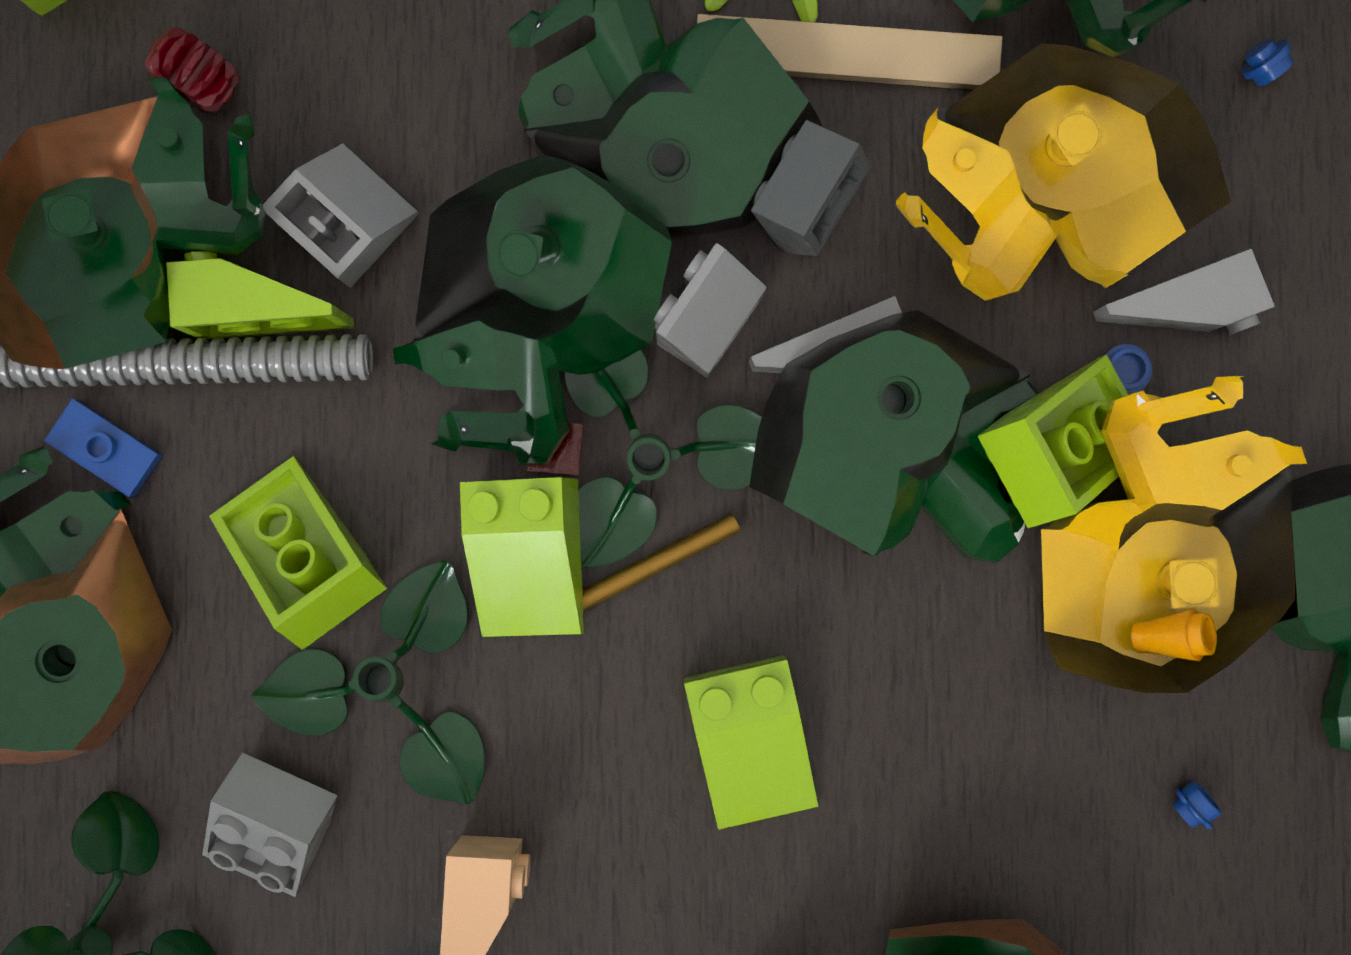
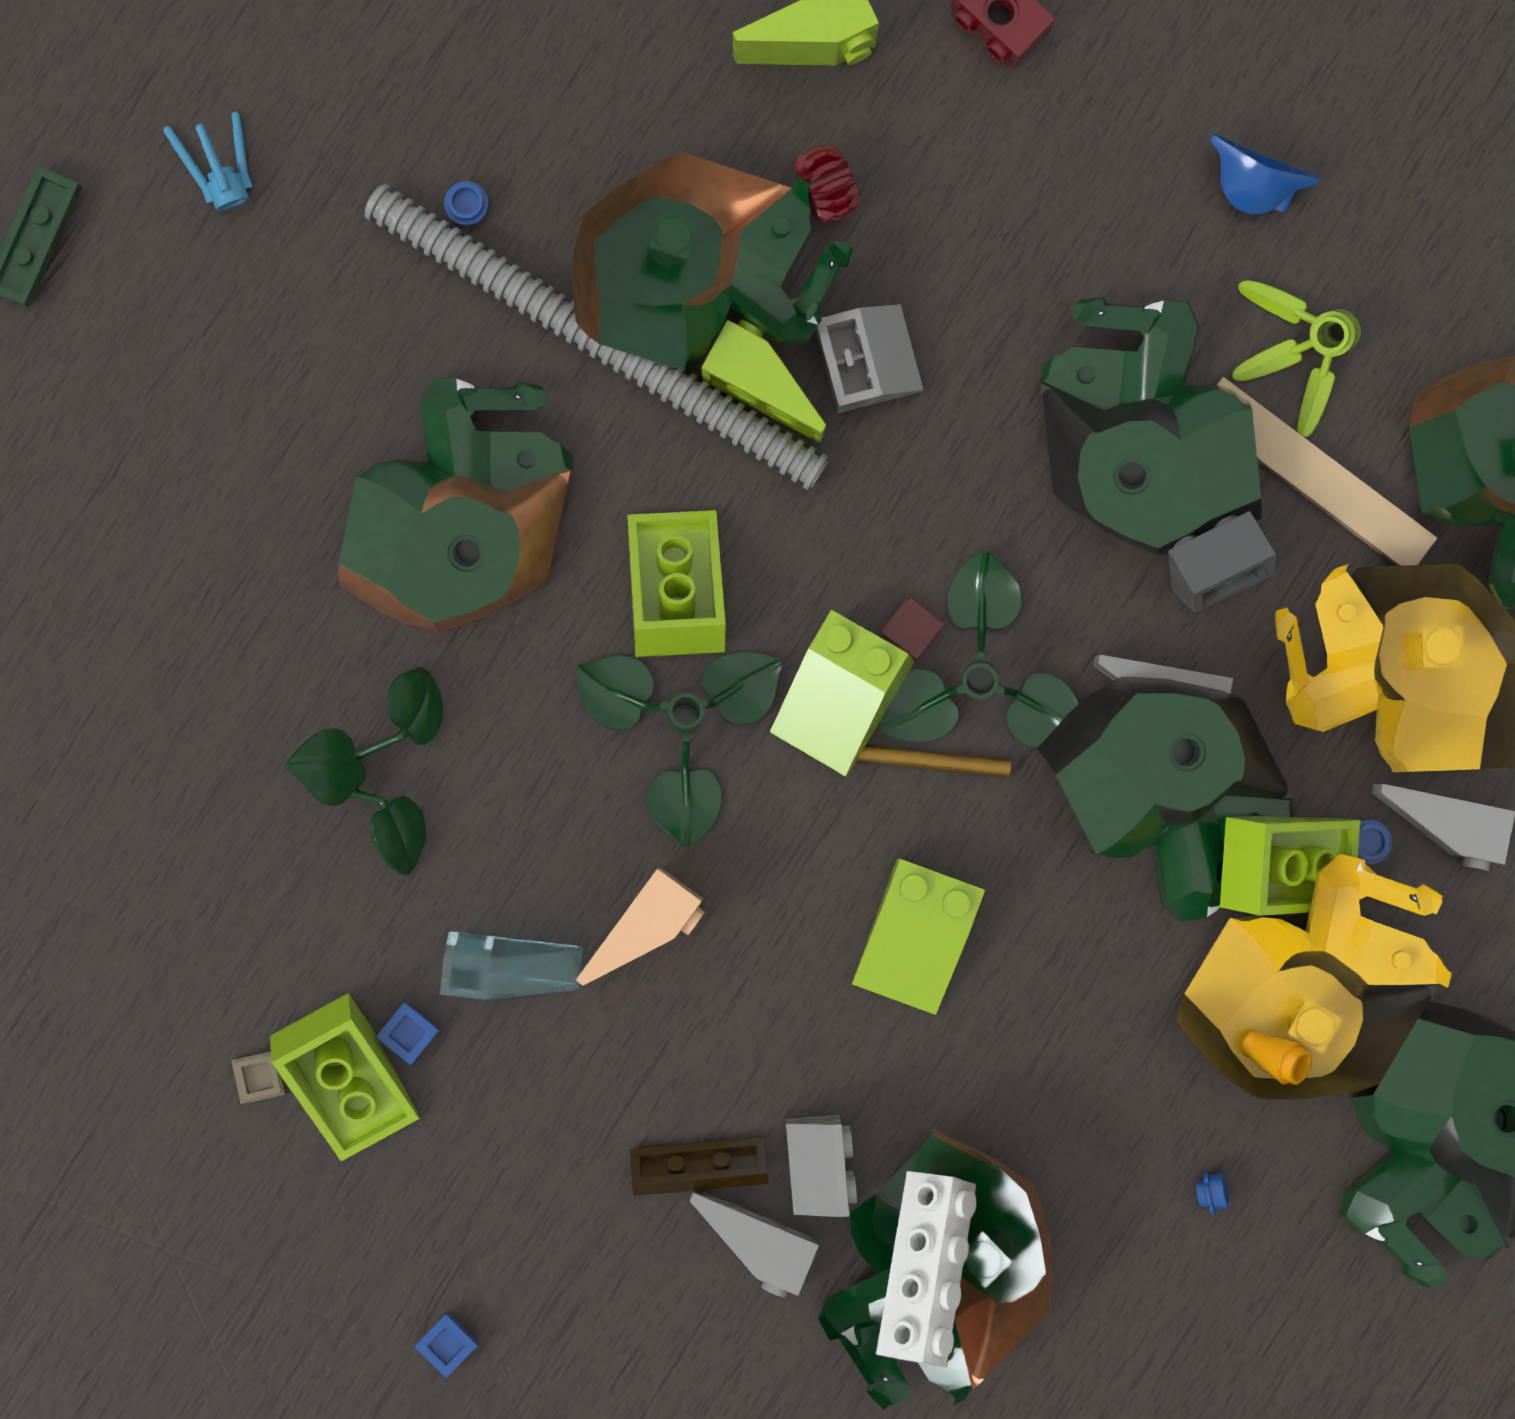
camera: 30 degrees right, 0 degrees up
(103, 448) = (581, 414): blue plate -> none
(267, 824) = (528, 768): light grey slope -> none
(572, 294) = (998, 521): dark green piece -> none
(709, 311) = (1090, 603): light grey slope -> none

